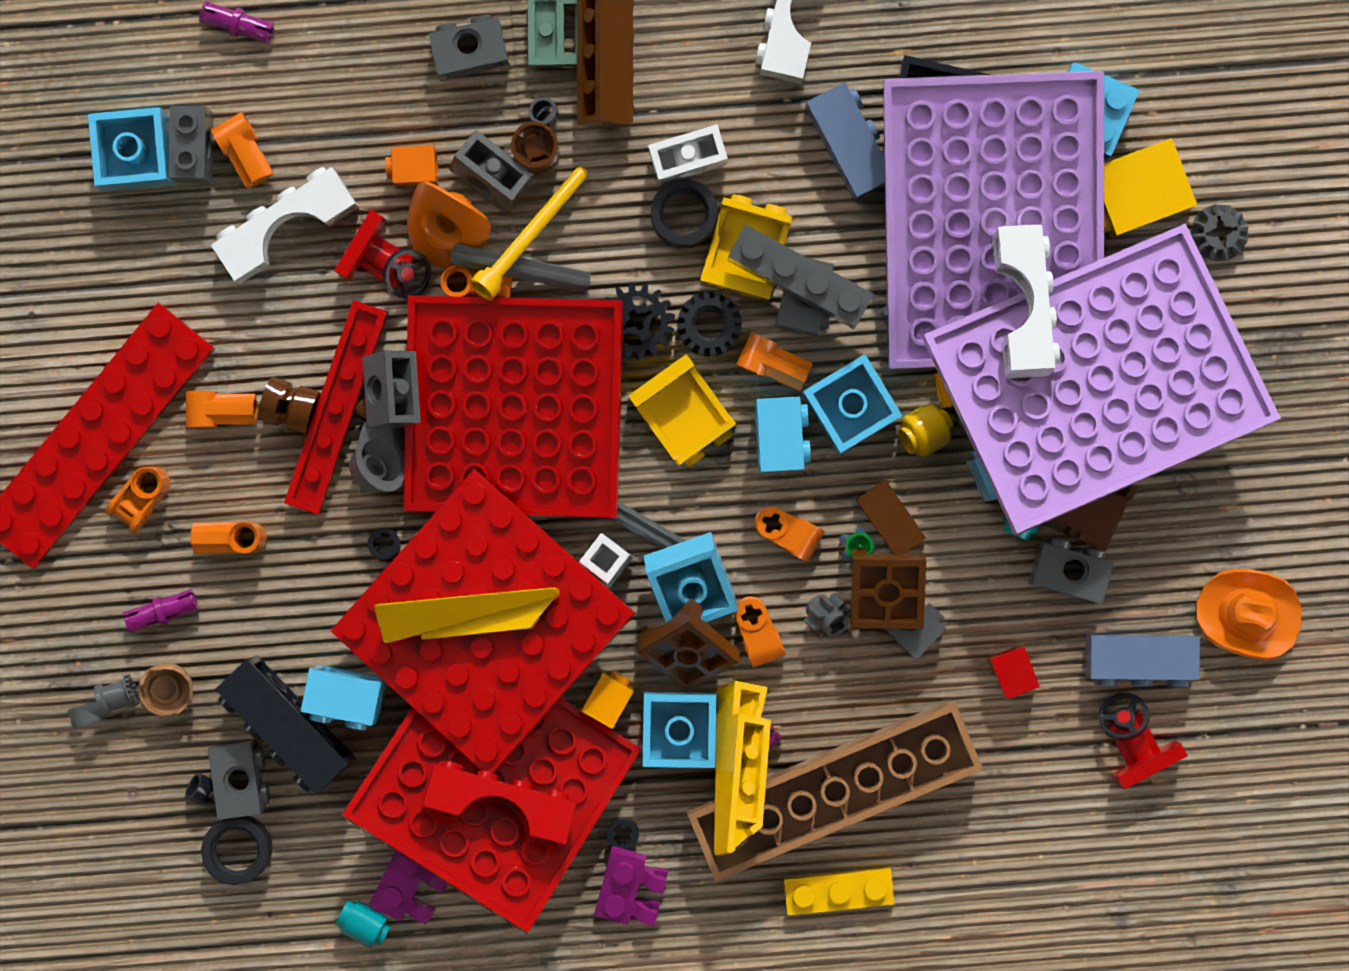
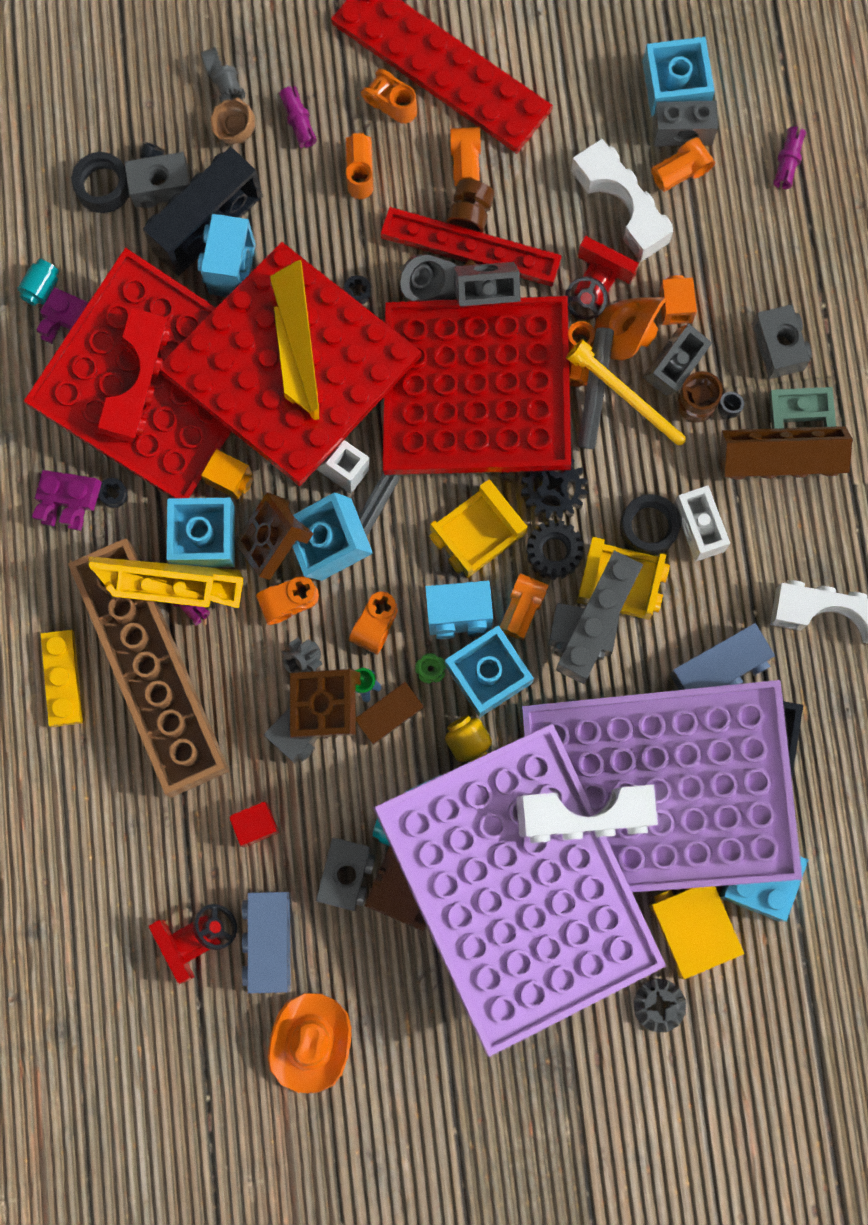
camera: 90 degrees right, 10 degrees down
(848, 477) = (427, 660): none -> bright green plate

